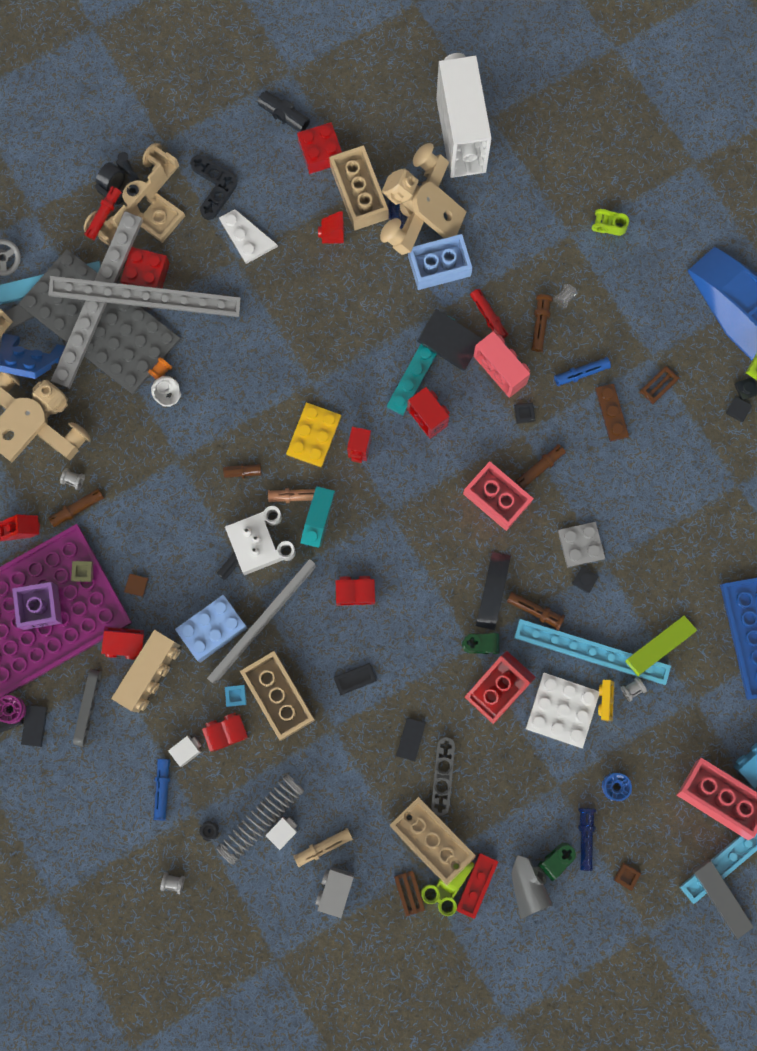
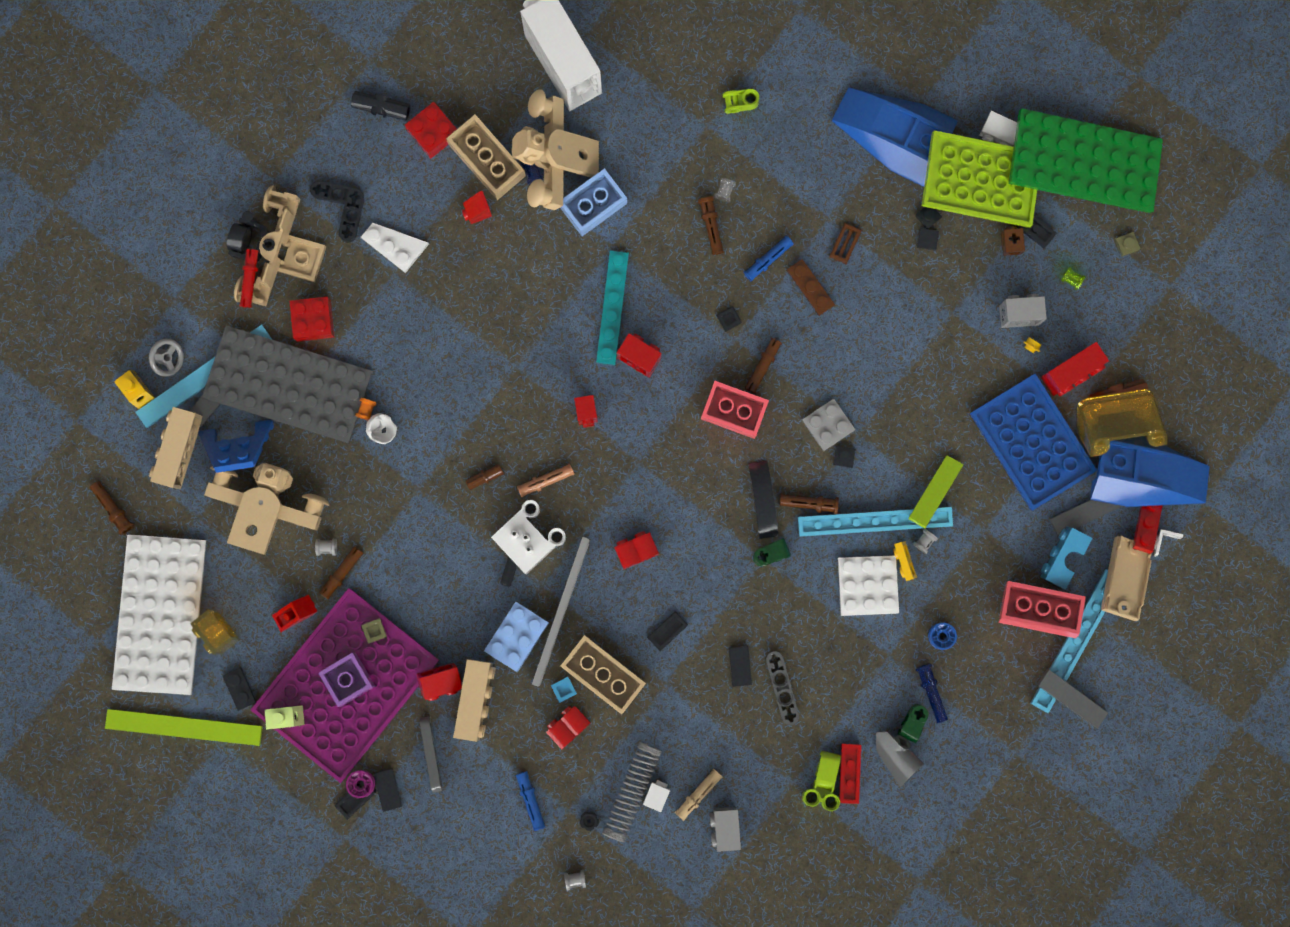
camera: 25 degrees left, 5 degrees up
(93, 310) = (278, 365): light grey plate -> none
(136, 585) = (428, 623): reddish brown tile -> none
(143, 296) = (324, 345): light grey plate -> none
(185, 750) = (538, 757): white brick -> none
(313, 435) = (538, 416): yellow plate -> none
(317, 517) = (574, 494): teal slope -> none
(414, 910) = (802, 817): reddish brown tile -> none
(432, 841) = (795, 750): tan piece -> none
(449, 339) = (631, 275): black tile -> none
(493, 321) = (656, 233): red pin -> none
(500, 687) = (803, 586): red slope -> none
(501, 364) = (690, 281): coral brick -> none
(627, 876) = (980, 712): reddish brown tile -> none

